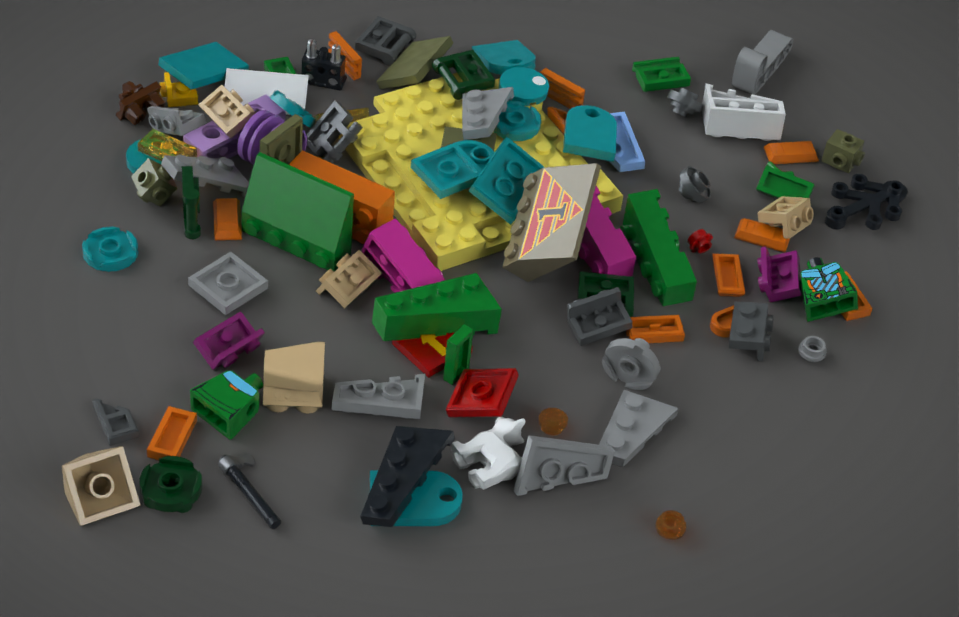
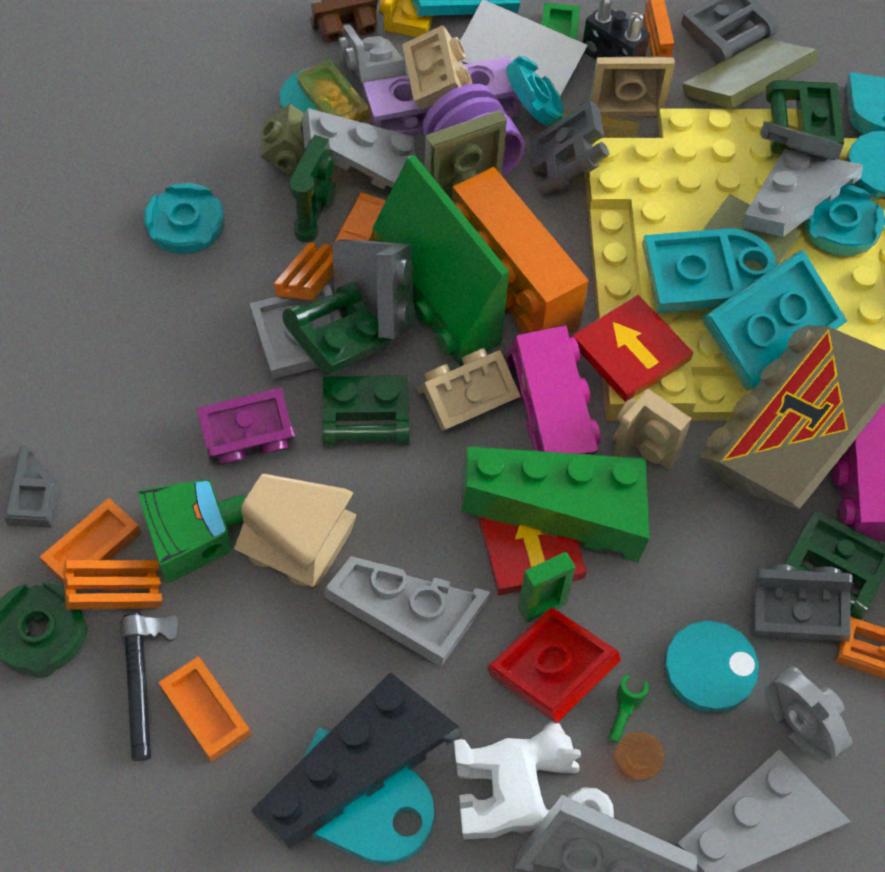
camera: 30 degrees right, 15 degrees up
(200, 444) = (112, 576): none -> orange tile
(213, 242) = (304, 269): none -> orange tile
(261, 276) = (342, 340): none -> dark green plate
(263, 238) = (383, 277): none -> flat silver bracket
(293, 311) = (365, 400): none -> dark green plate
(296, 488) = (205, 709): none -> orange tile
(352, 87) = (631, 85): none -> tan slope
(436, 222) = (632, 348): none -> red tile
(471, 256) = (653, 428): none -> tan bracket
(472, 84) = (802, 141): none -> dark grey tile
(532, 398) = (628, 702): none -> green hand
(566, 367) = (711, 667): none -> teal tile

